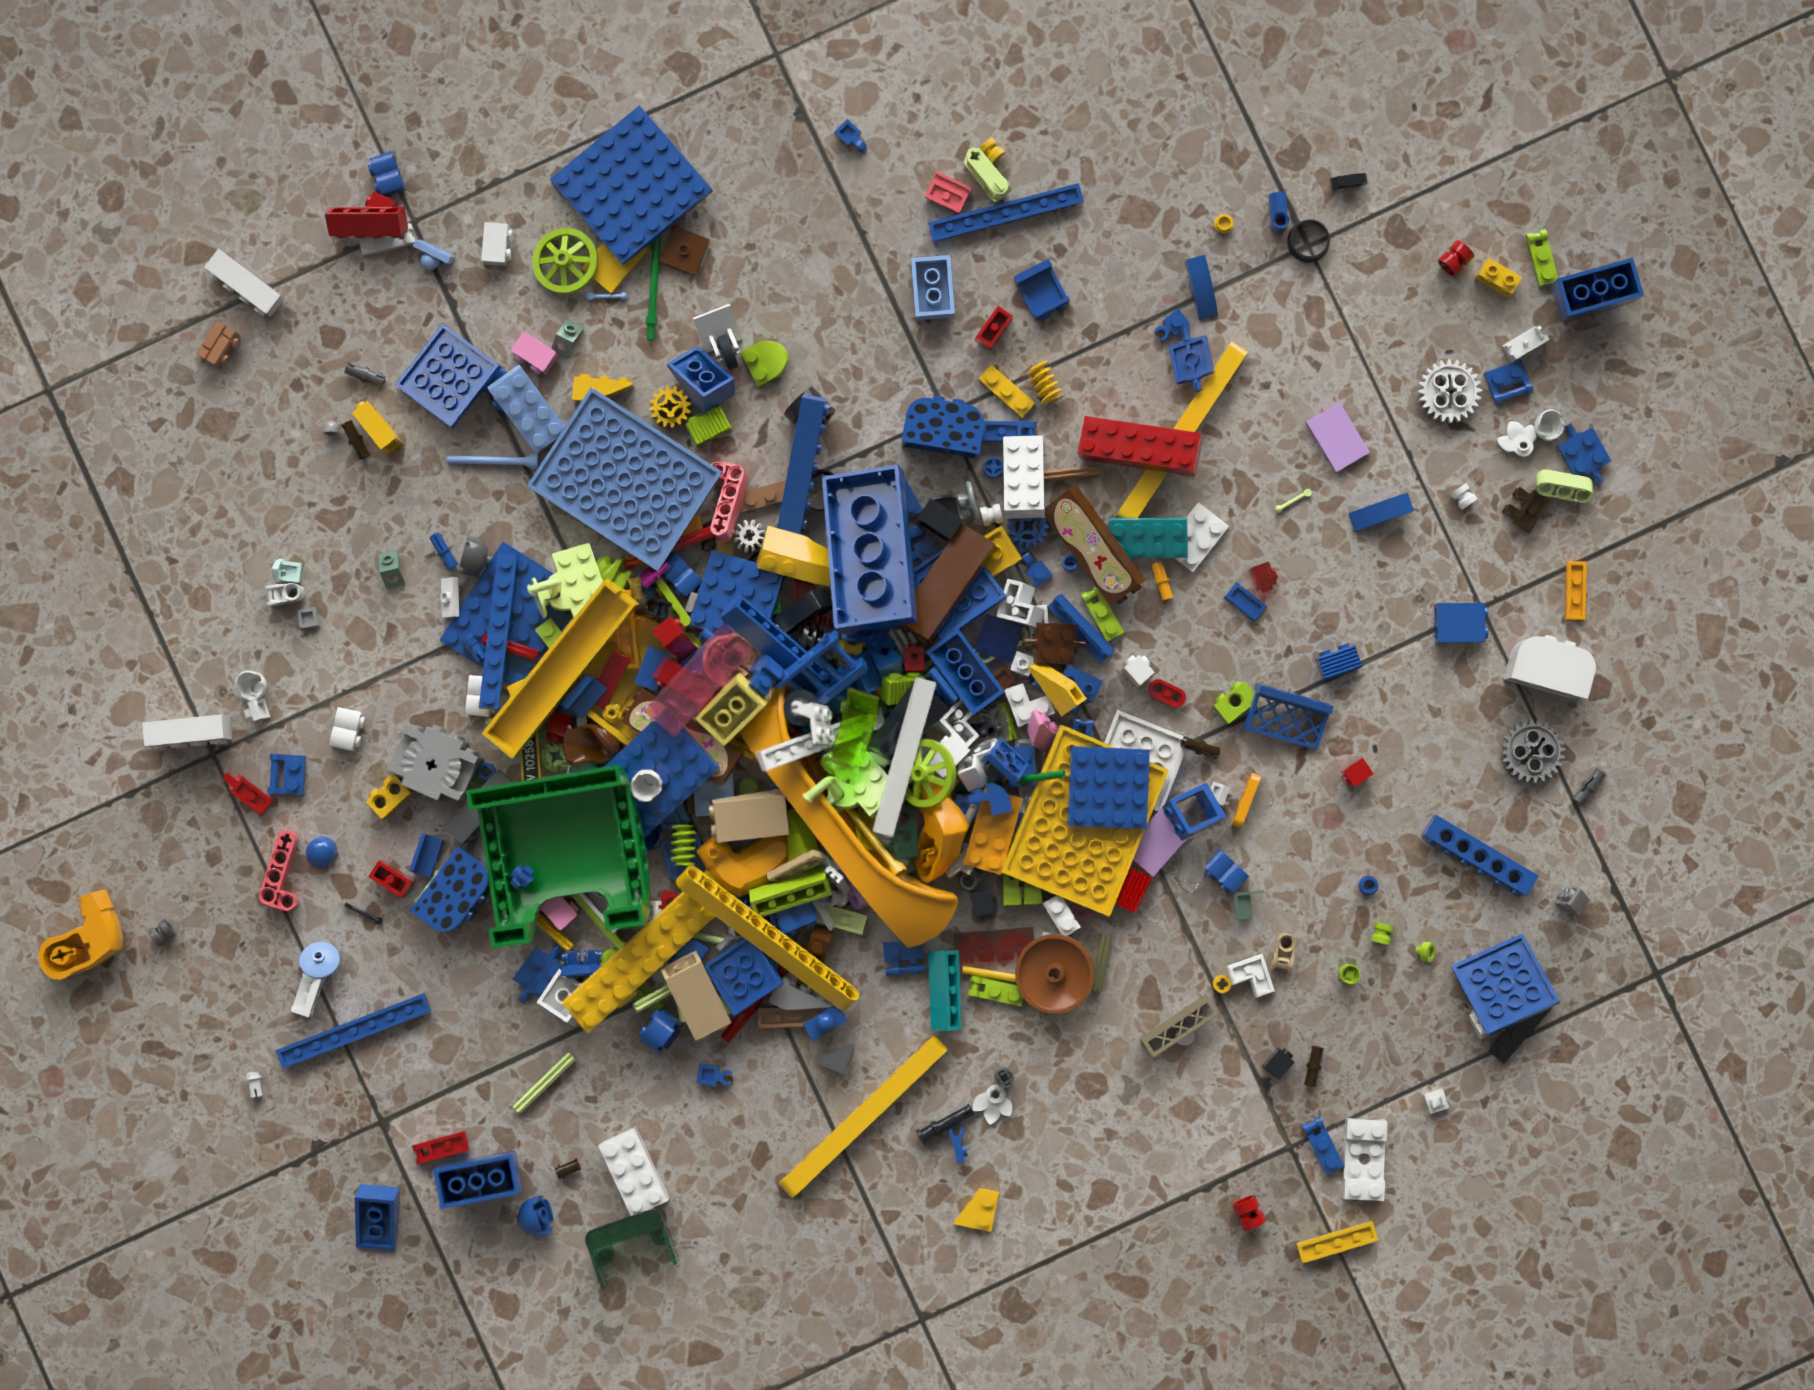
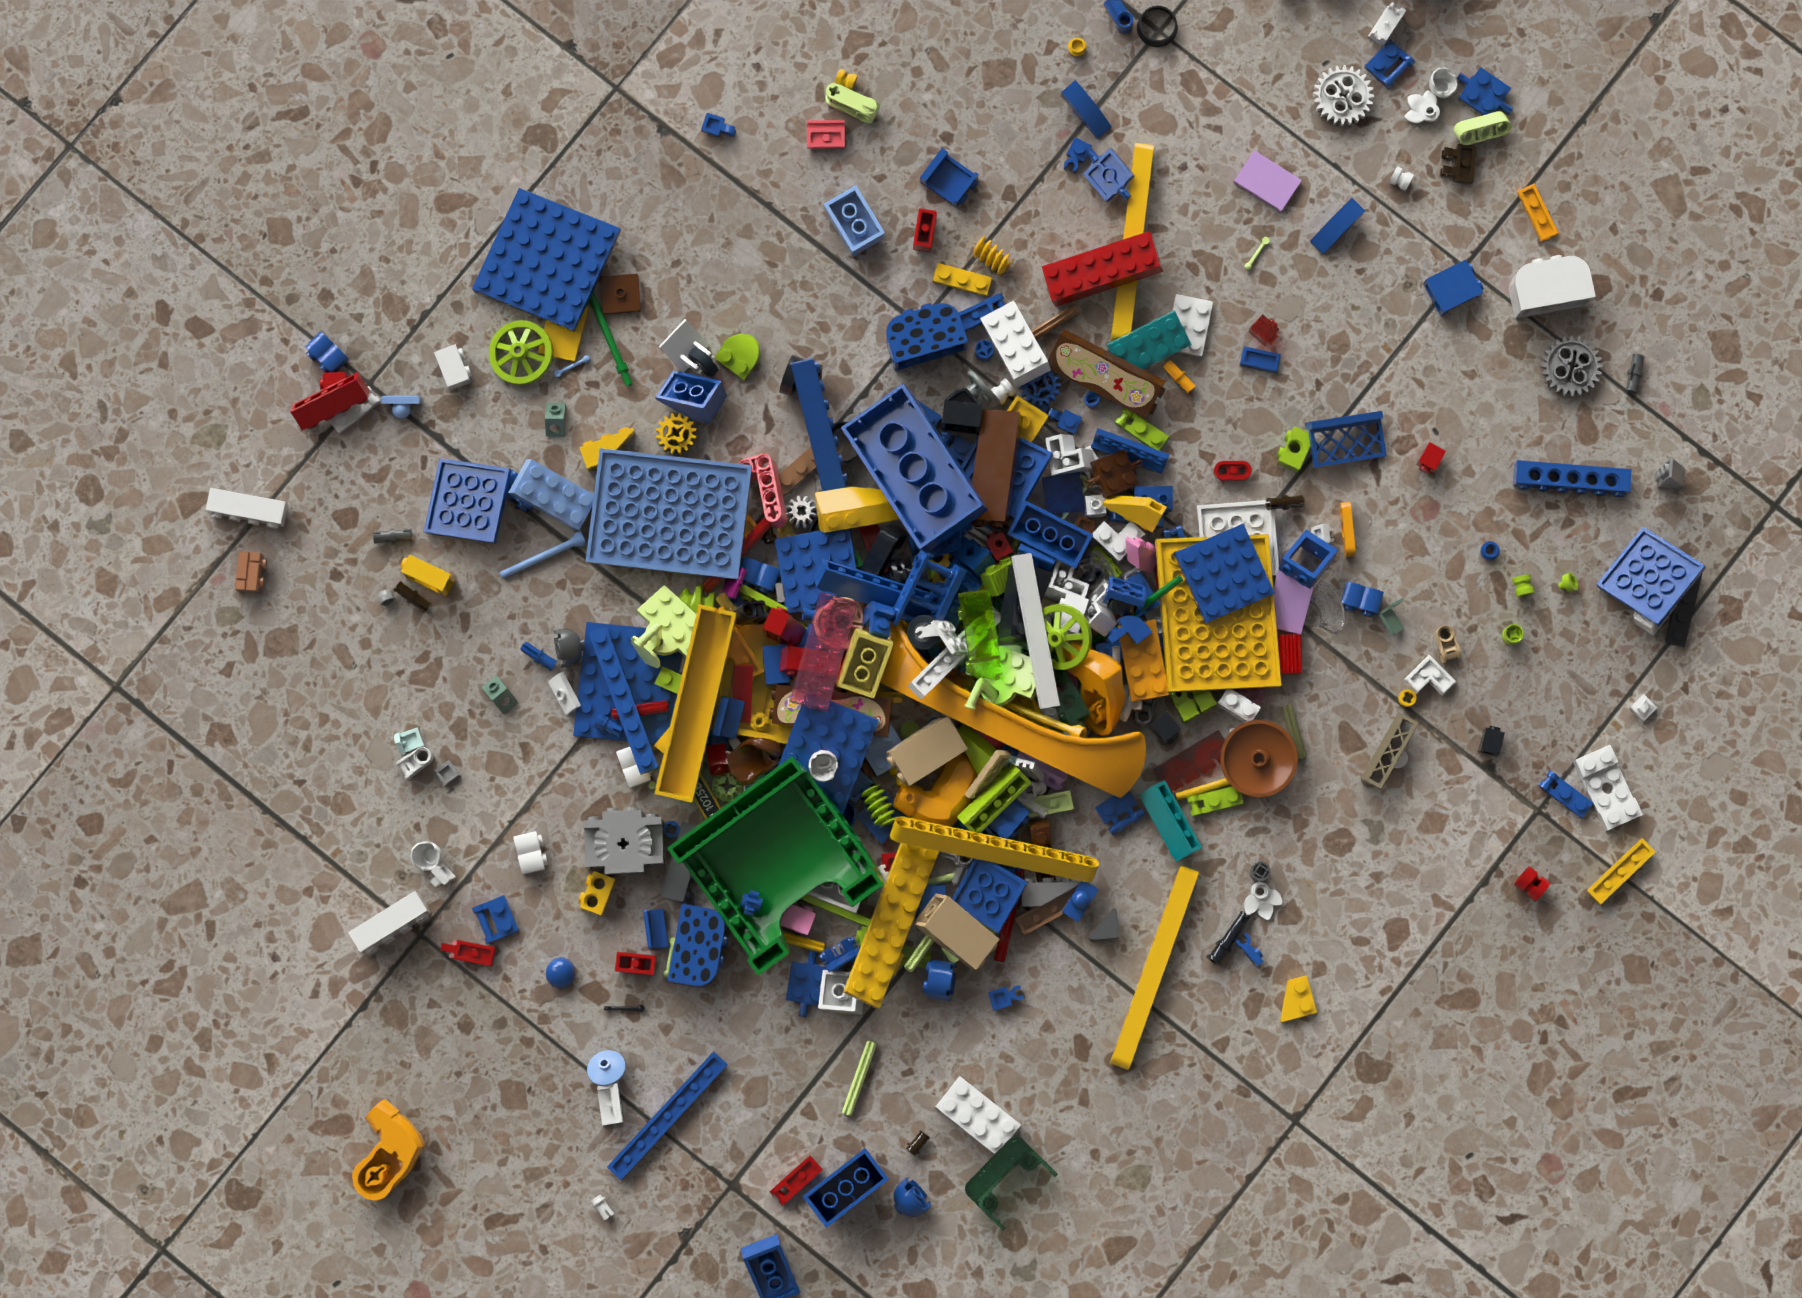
camera: 30 degrees left, 5 degrees down
(162, 932) = (453, 1113): dark grey wheel -> none
(283, 869) = (533, 1003): coral beam -> none
(534, 353) = (533, 445): bright pink brick -> none
(708, 426) = (717, 434): lime brick -> none
(823, 621) = (904, 552): red tile -> none
(1006, 212) = (884, 127): blue plate -> none
(1137, 669) = (1197, 461): white brick -> none
(1314, 1066) = (1523, 729): dark brown pin -> none
(1338, 662) = (1366, 372): blue brick -> none

